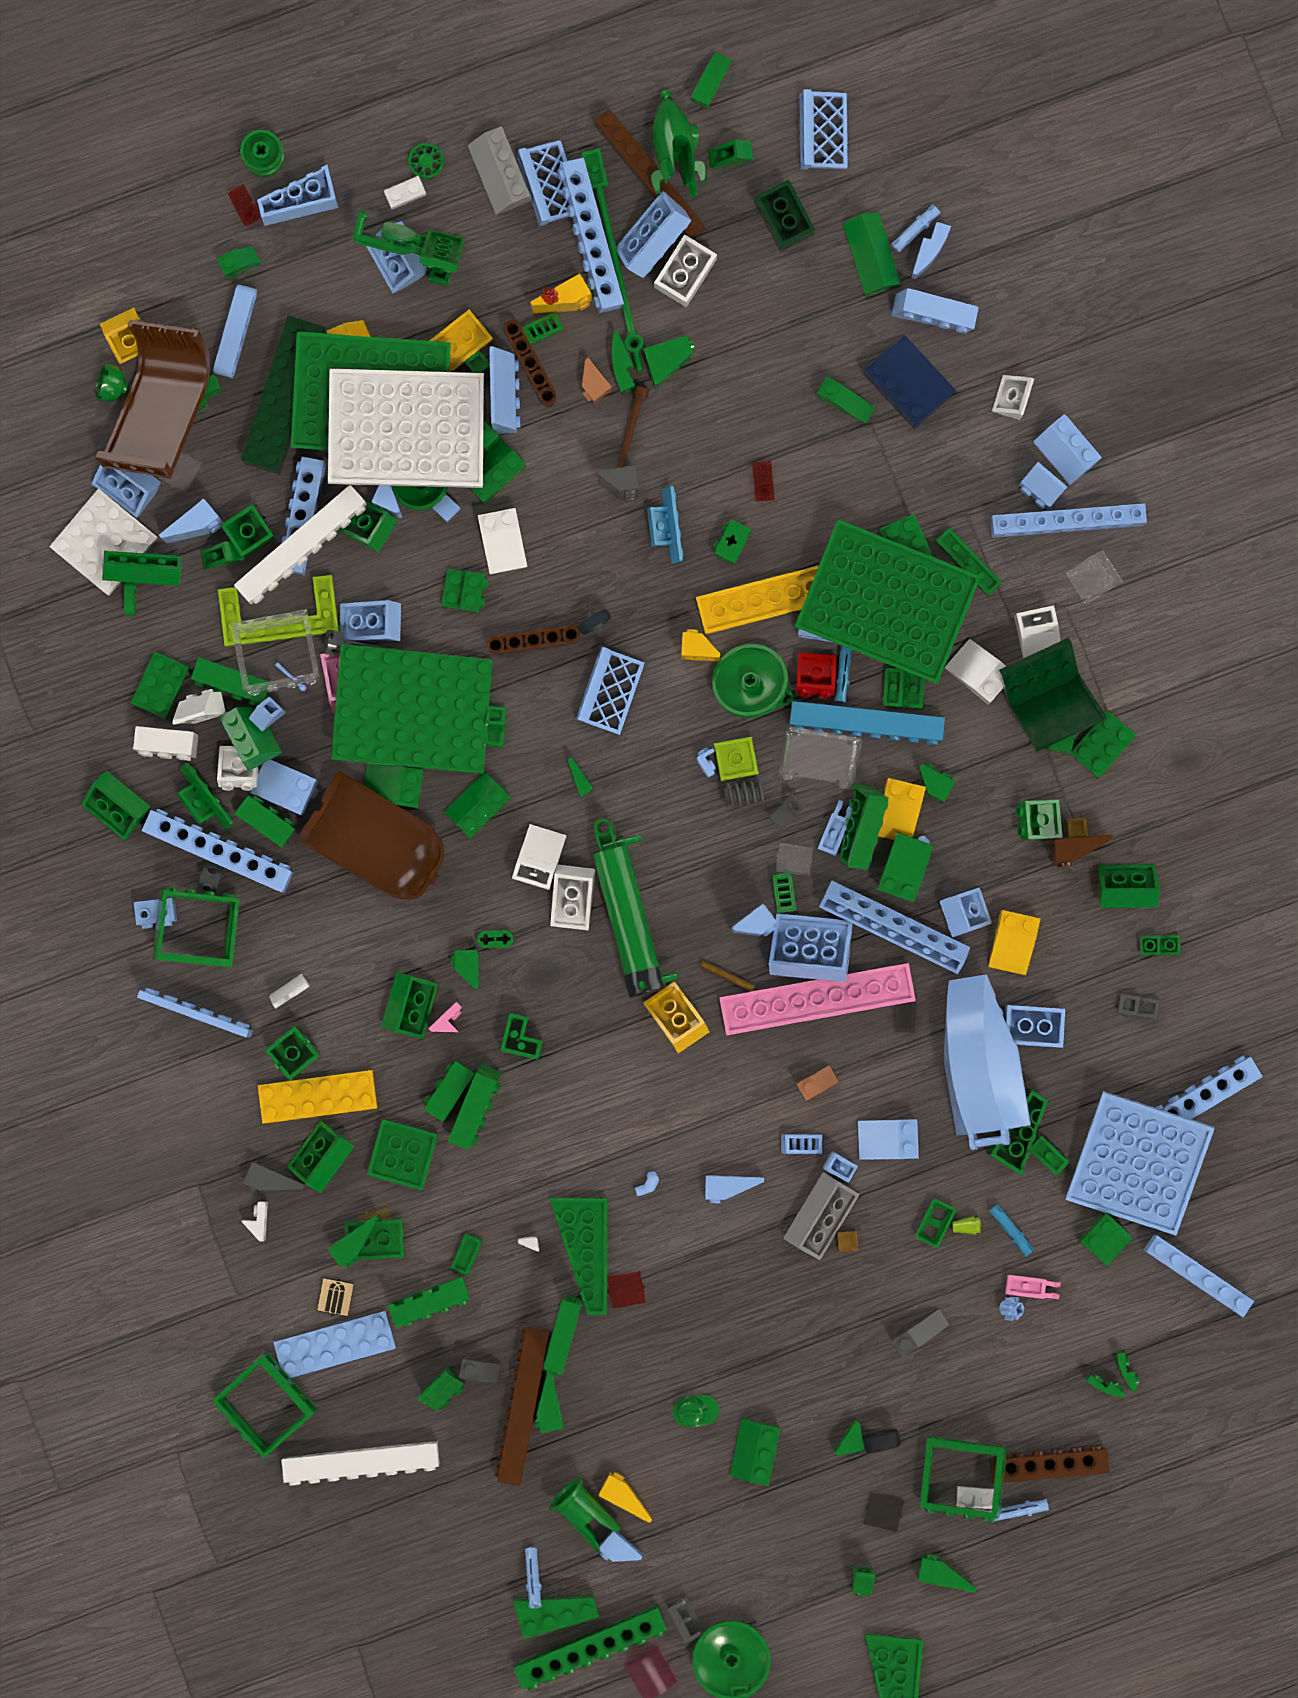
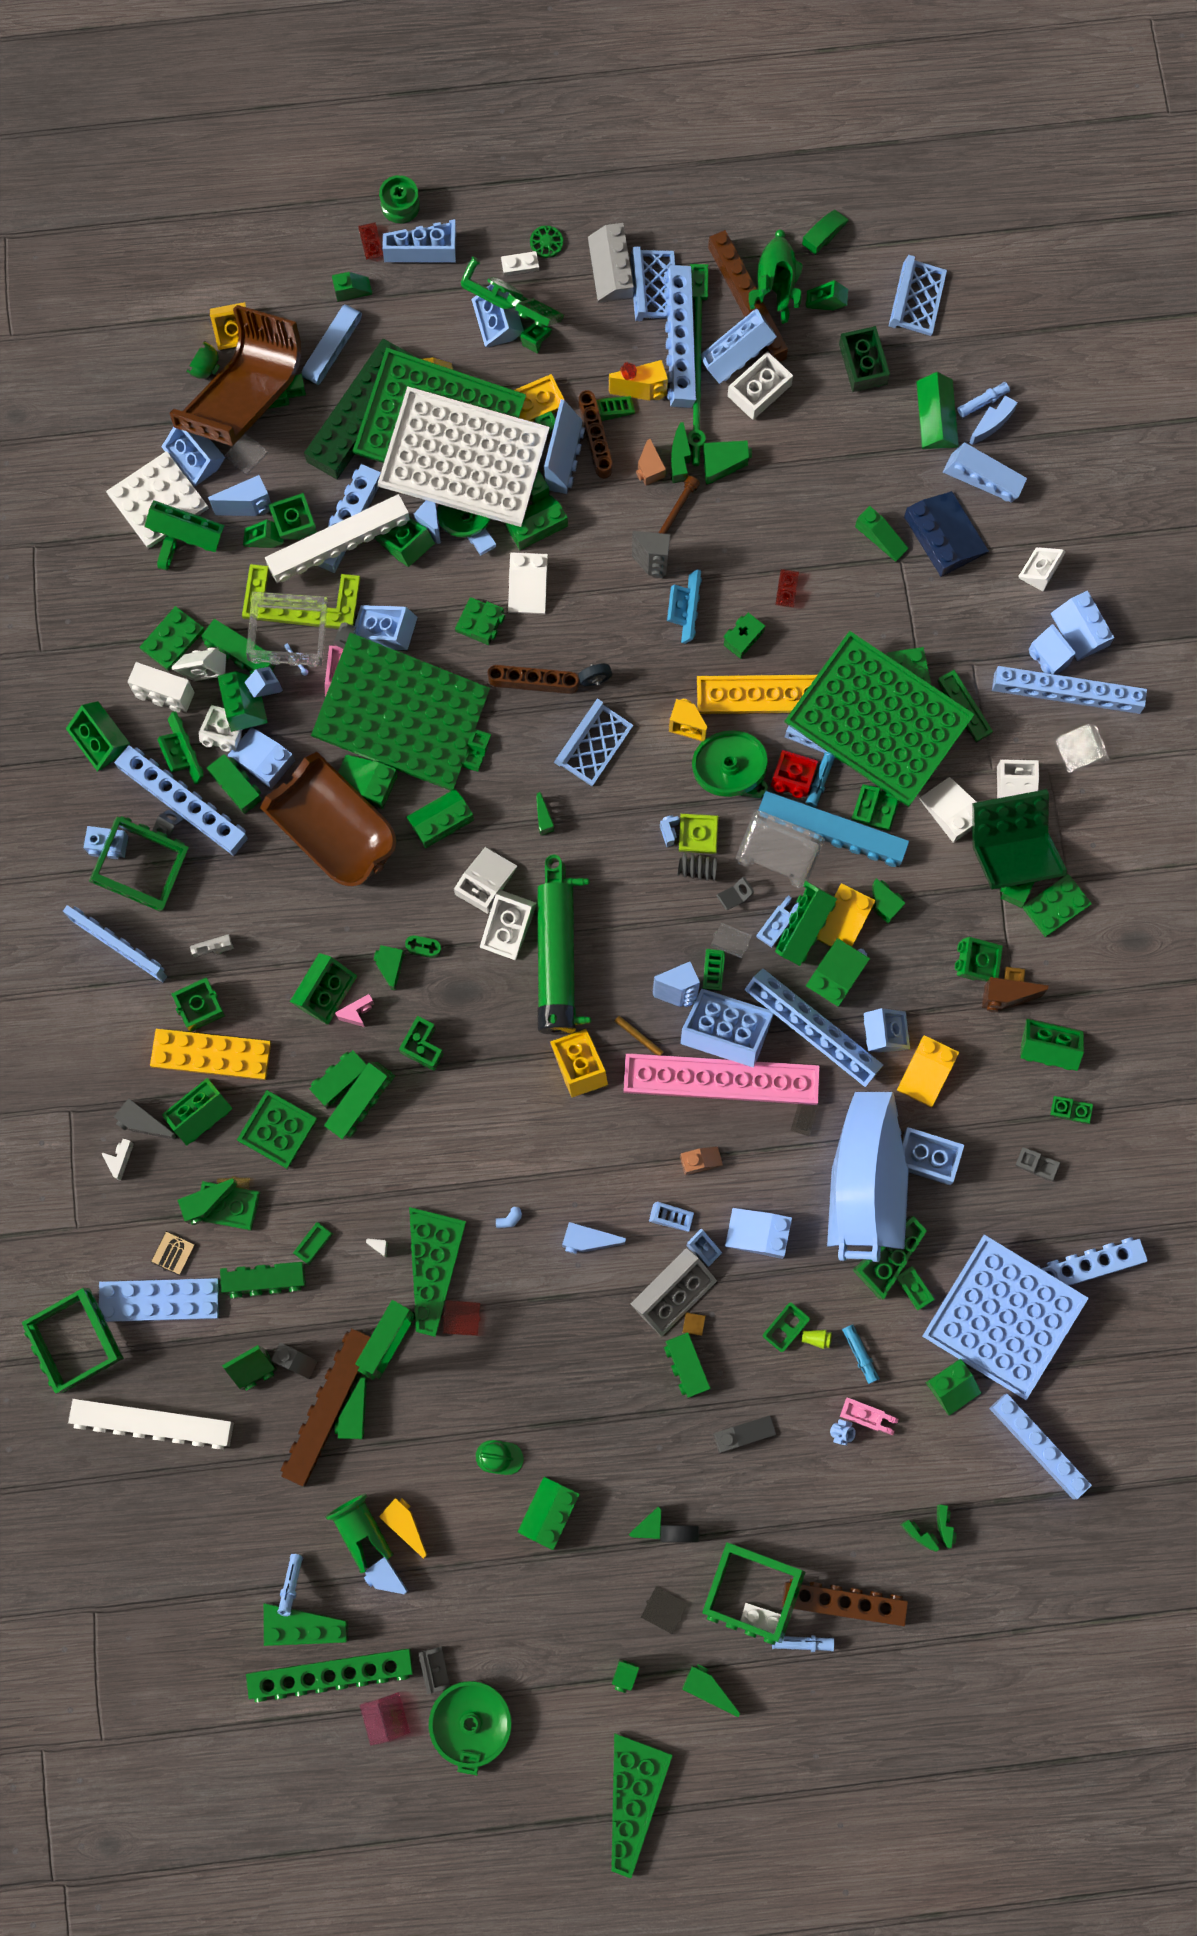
camera: 15 degrees right, 10 degrees down
(850, 1282) = (686, 1365): none -> green brick

